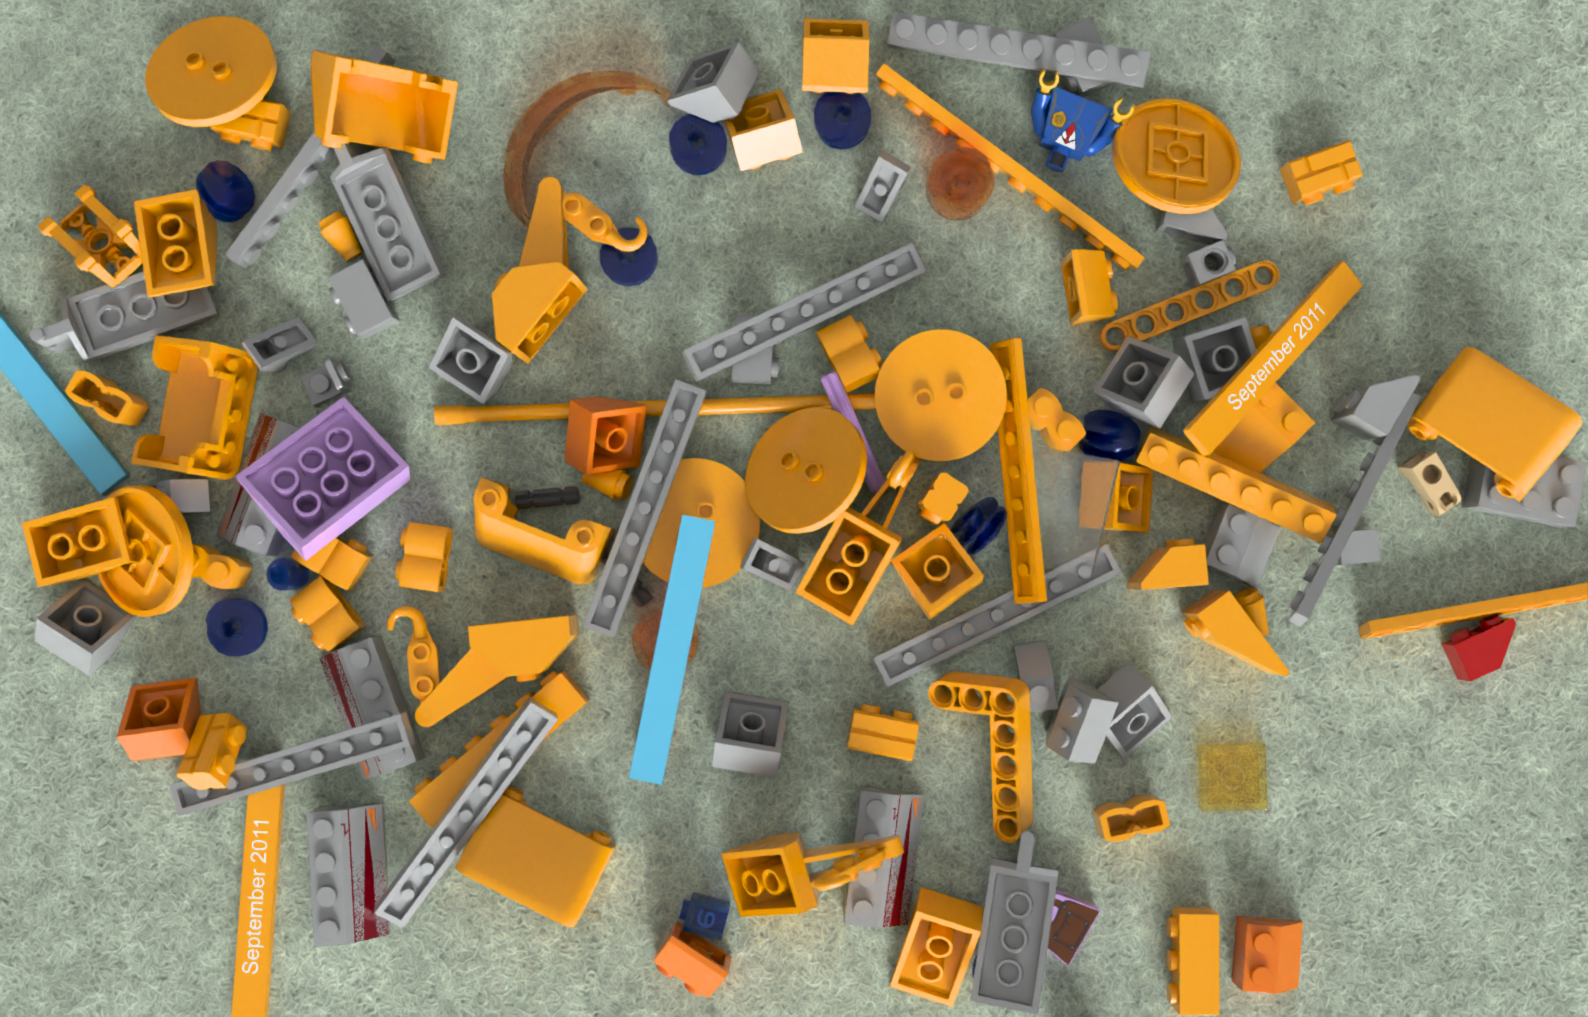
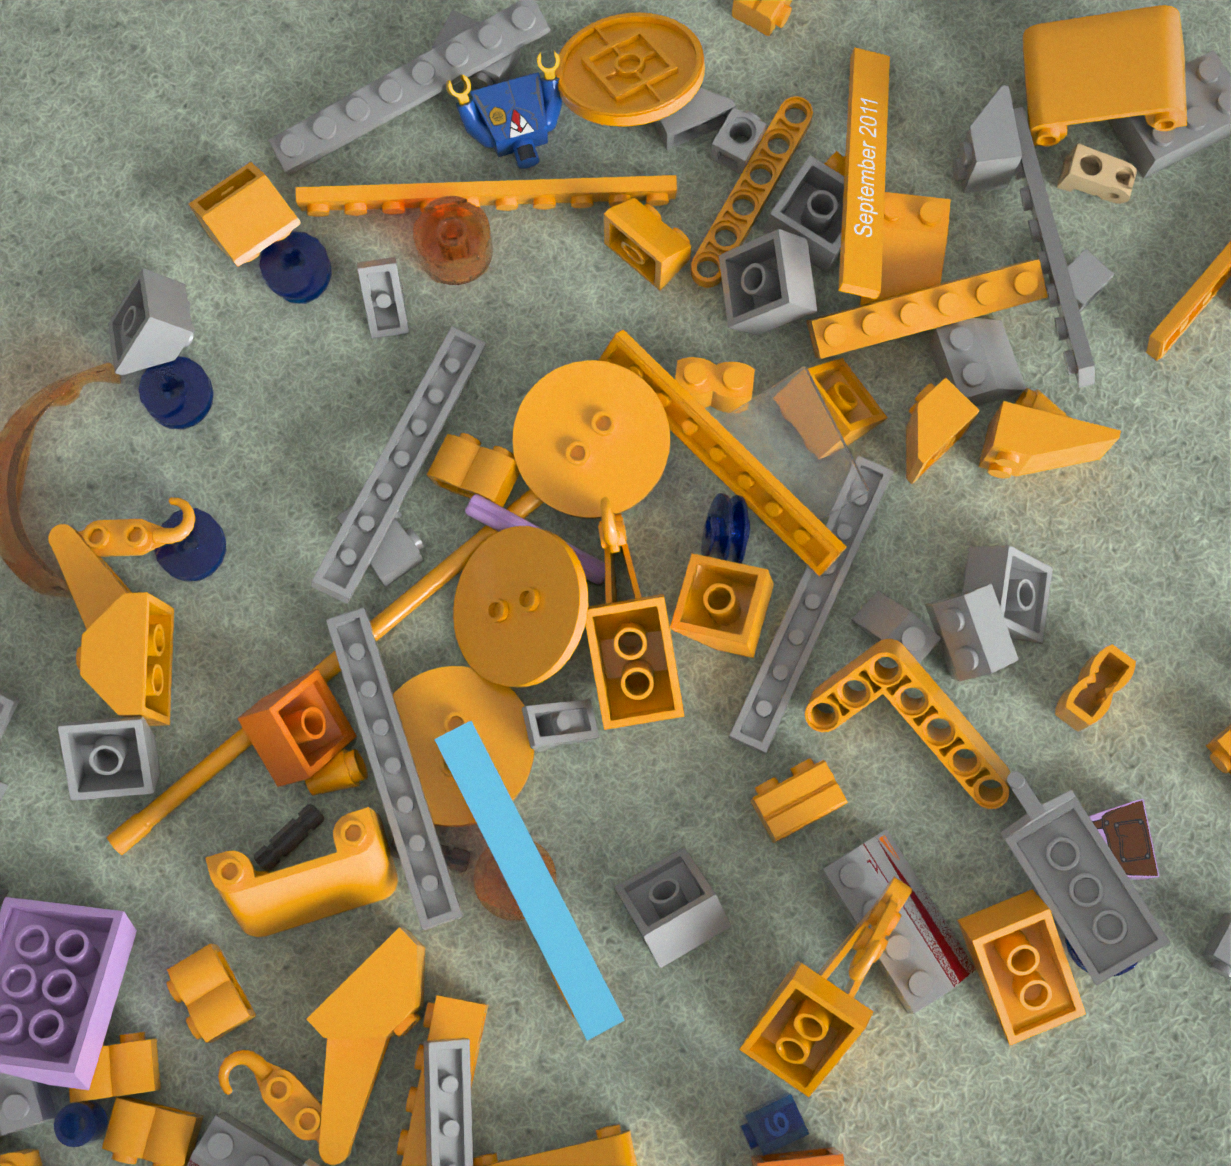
camera: 40 degrees left, 10 degrees down
(763, 131) = (231, 334): slope -> none
(941, 499) = (671, 532): light orange brick -> none
(1109, 435) = (777, 355): clear blue piece -> none
(1232, 777) = (1154, 577): clear yellow tile -> none

